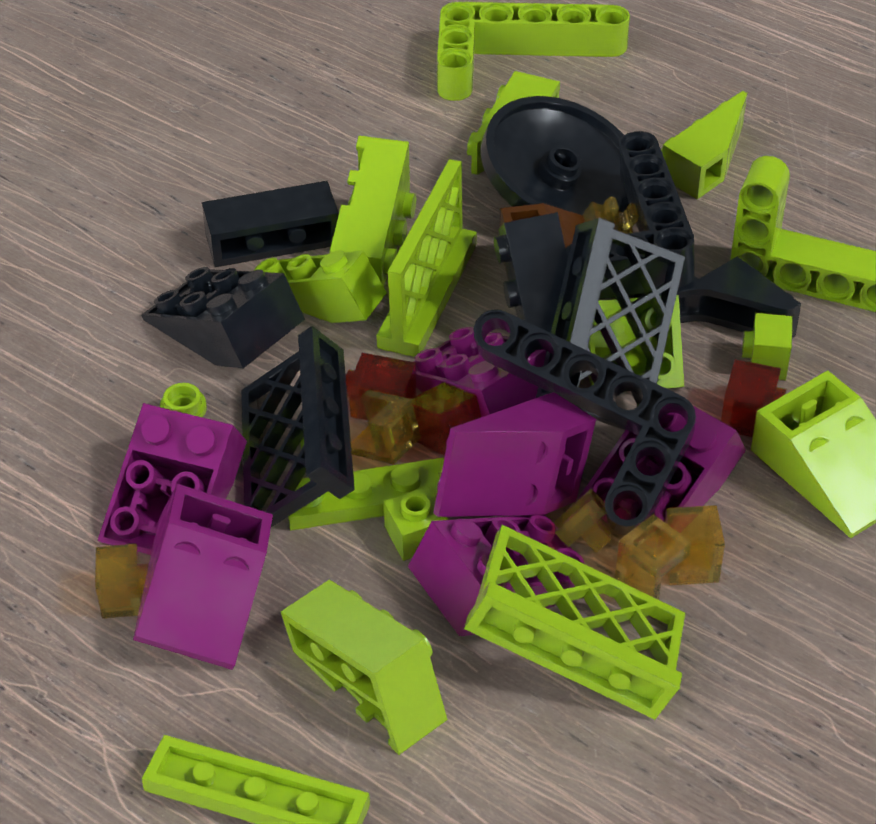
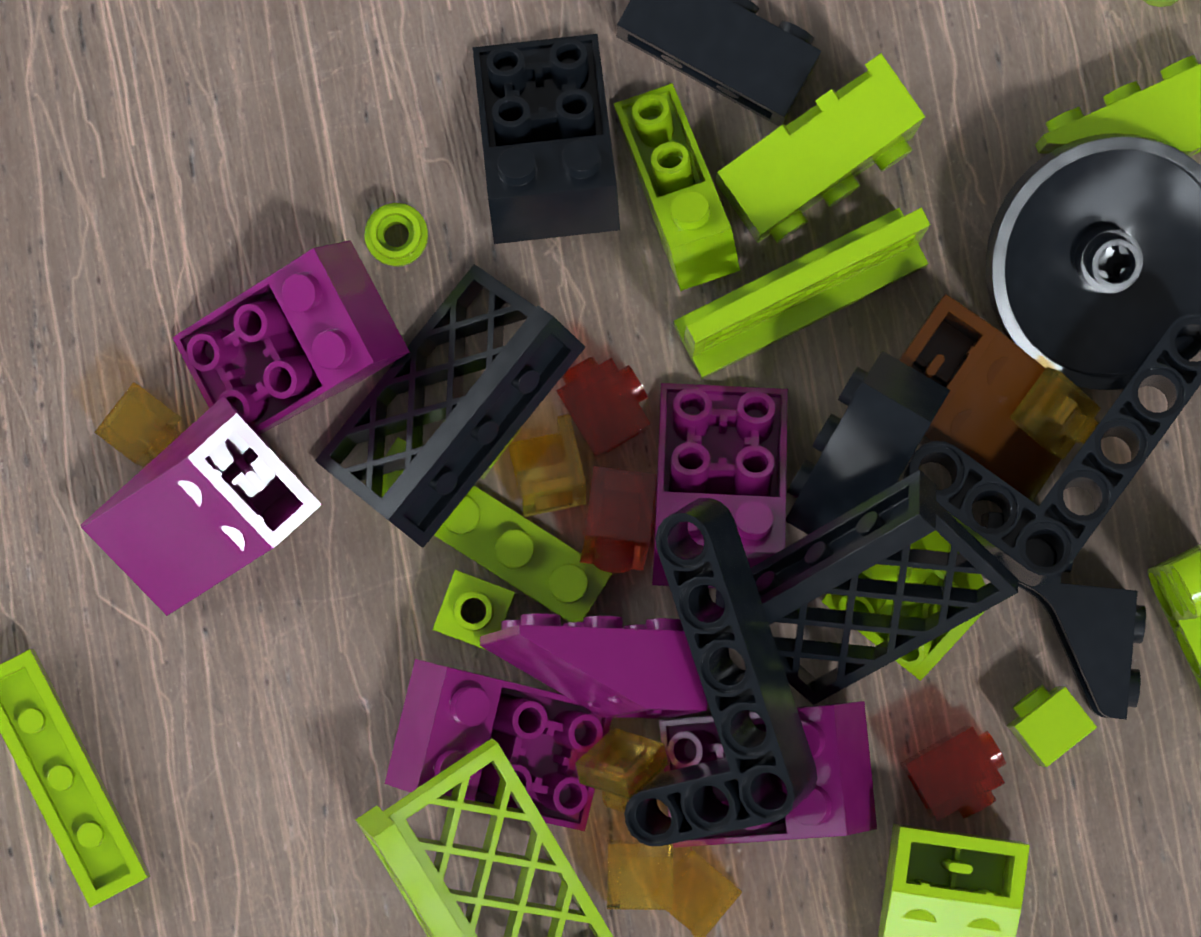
camera: 40 degrees right, 40 degrees up
(371, 658) = (270, 733): lime wedge -> none

